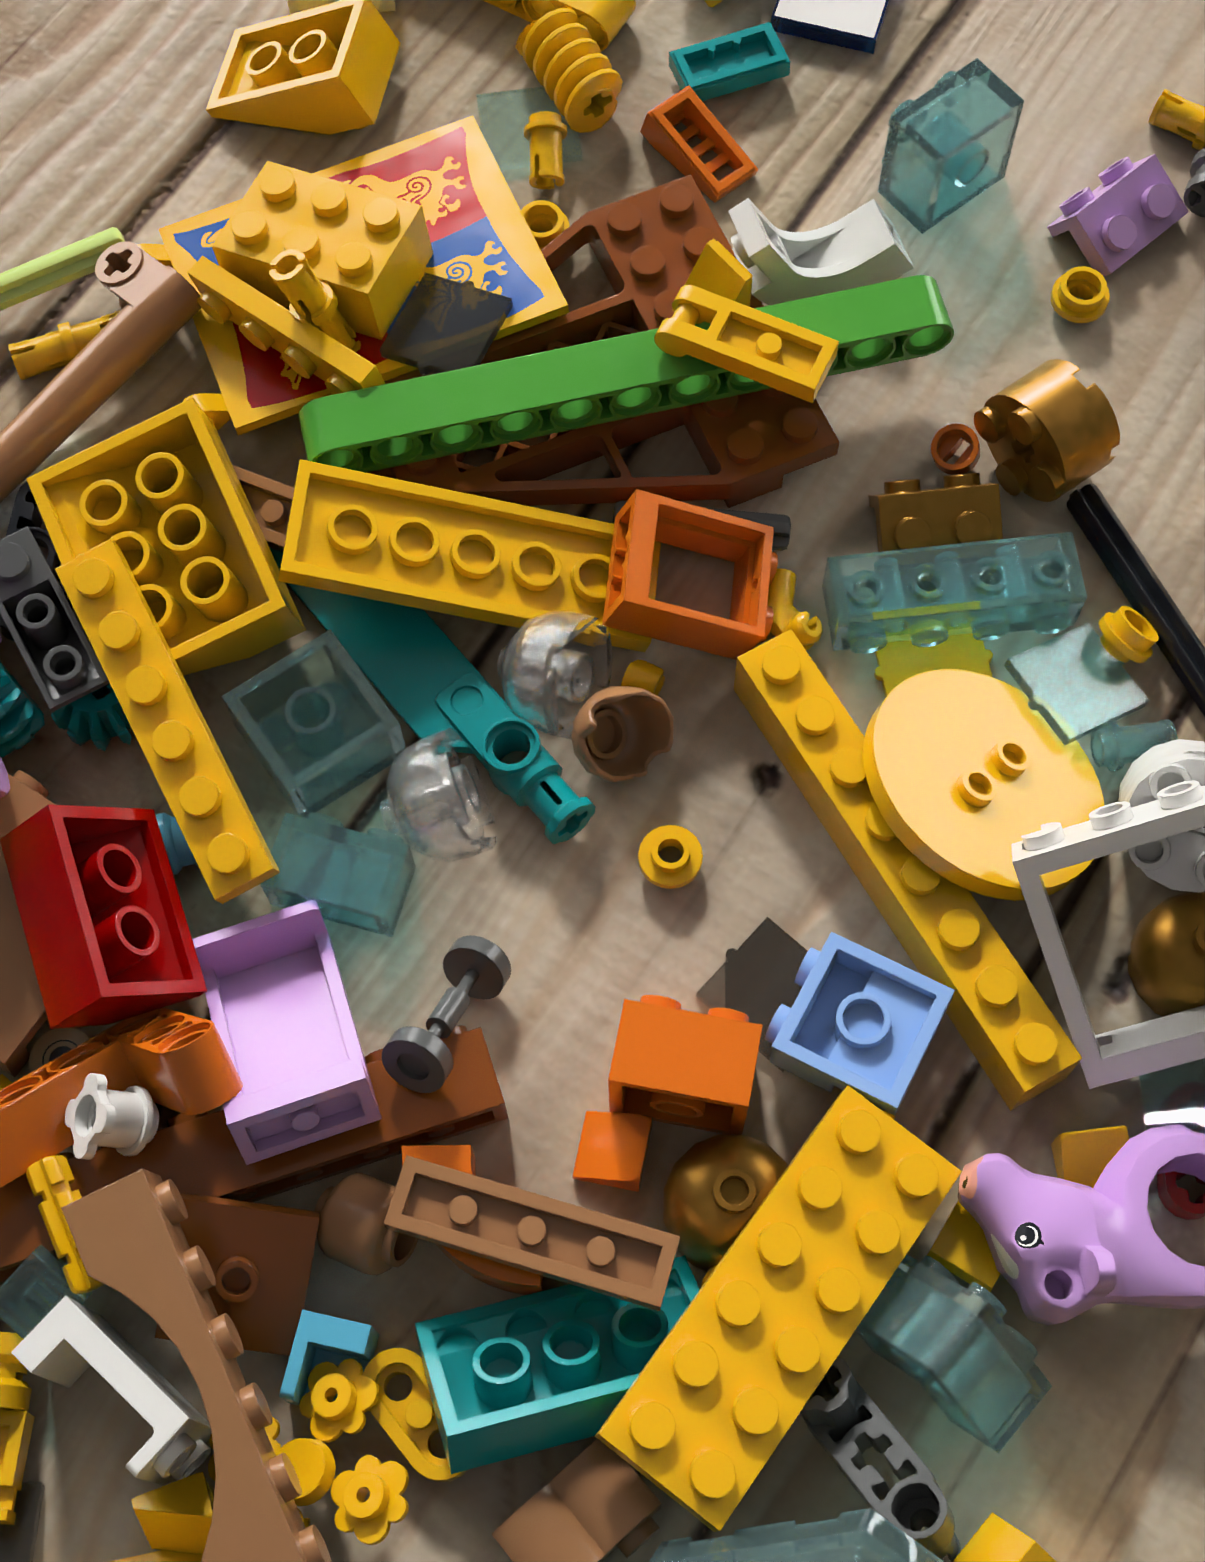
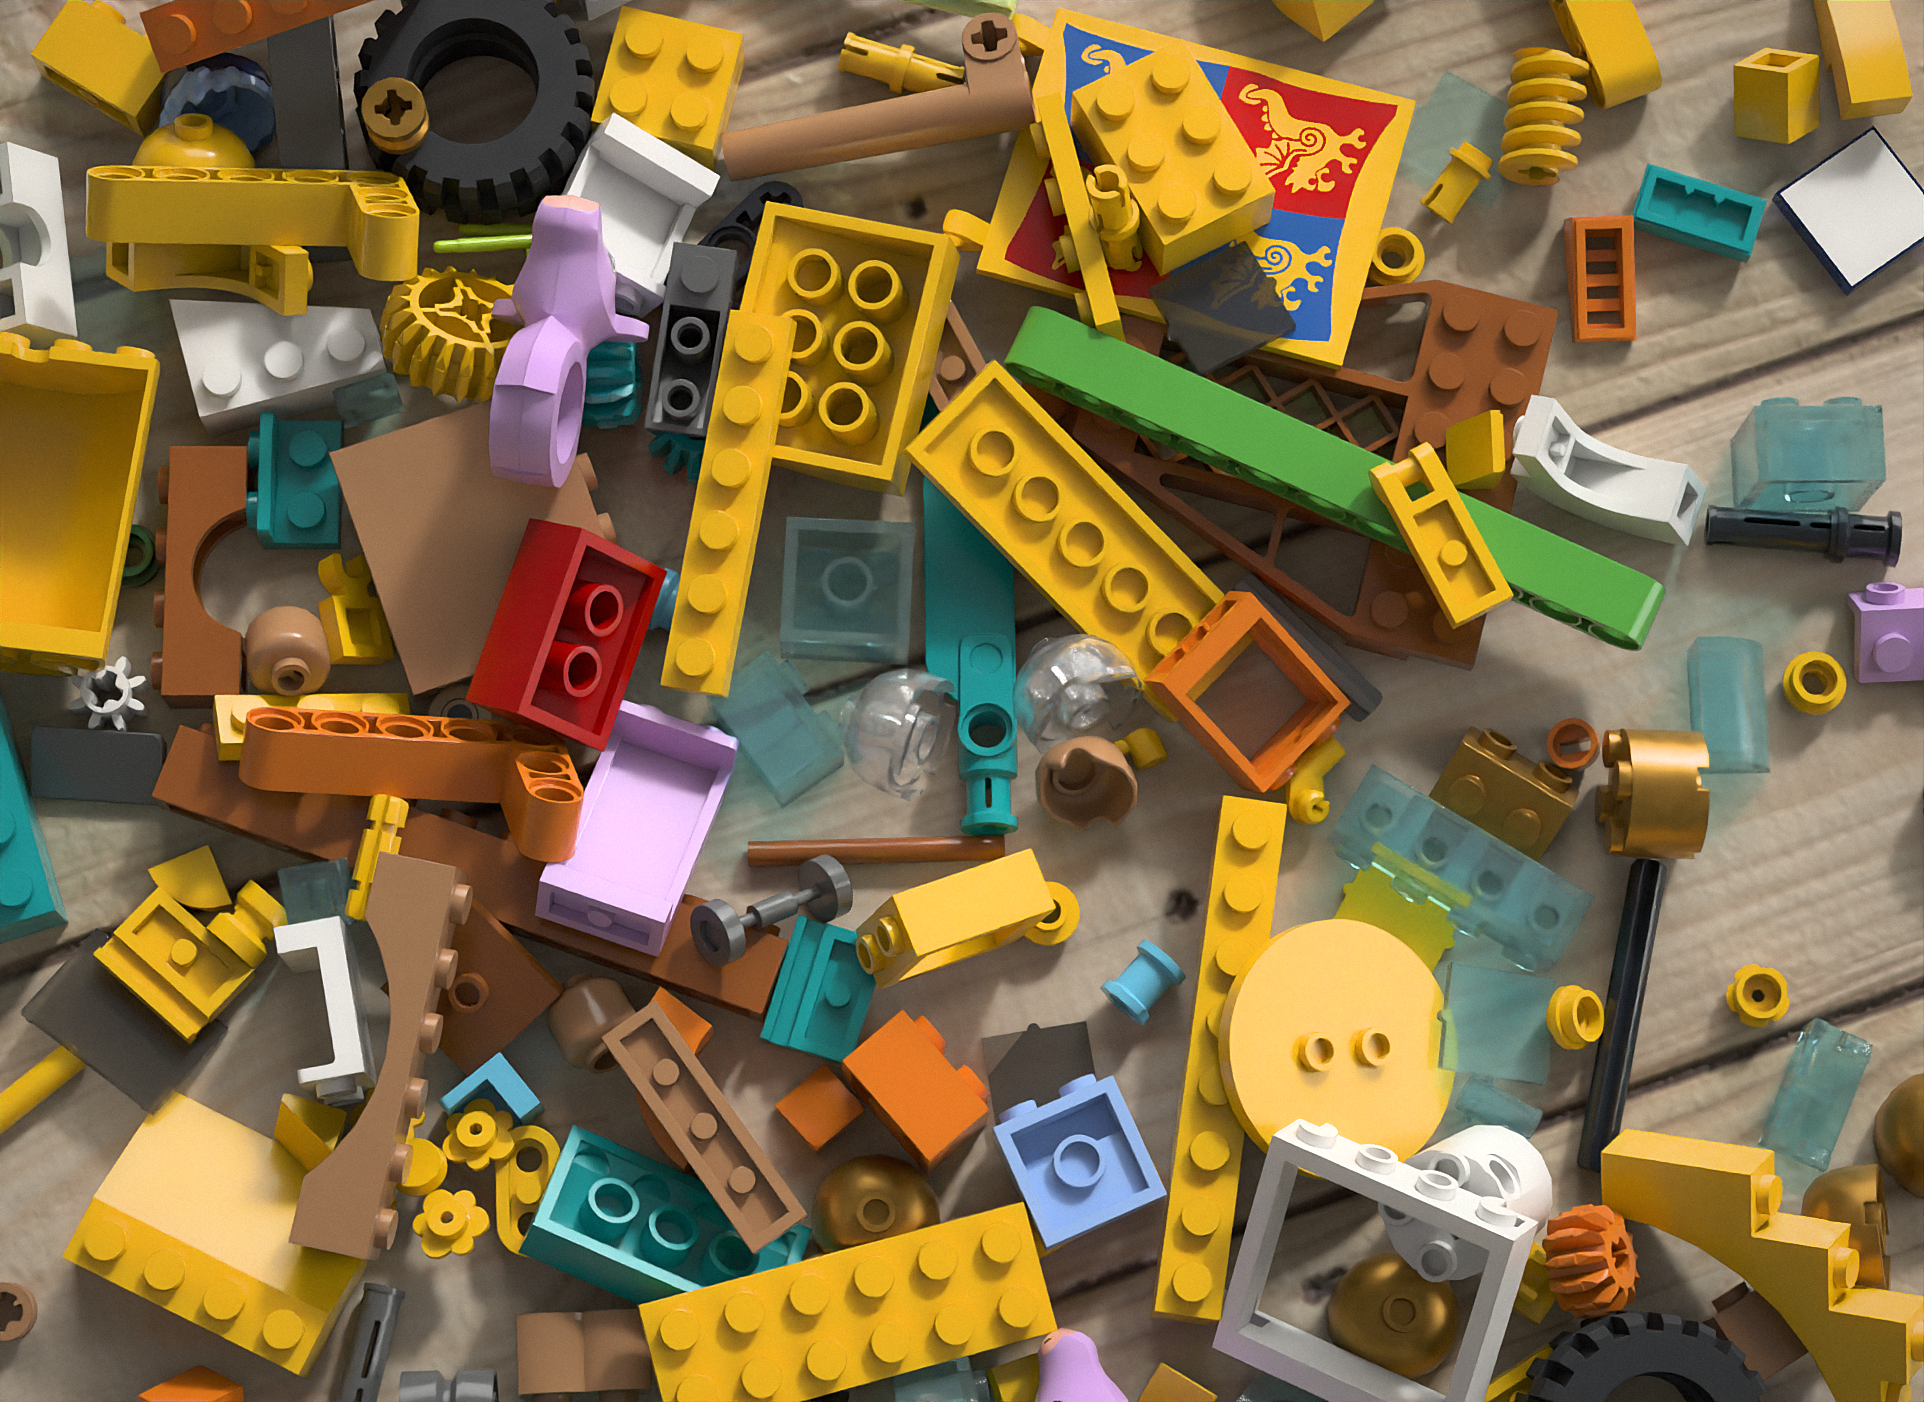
camera: 30 degrees right, 10 degrees up
(111, 1118) = (461, 803): white brick -> none
(495, 909) = (878, 850): none -> dark orange bar
(541, 1051) = (819, 994): none -> teal plate
(604, 903) = (953, 919): none -> yellow window
(789, 850) = (1143, 982): none -> medium azure bush
(1004, 194) = (1834, 534): none -> black pin
(1023, 337) = (1729, 703): none -> clear light blue brick

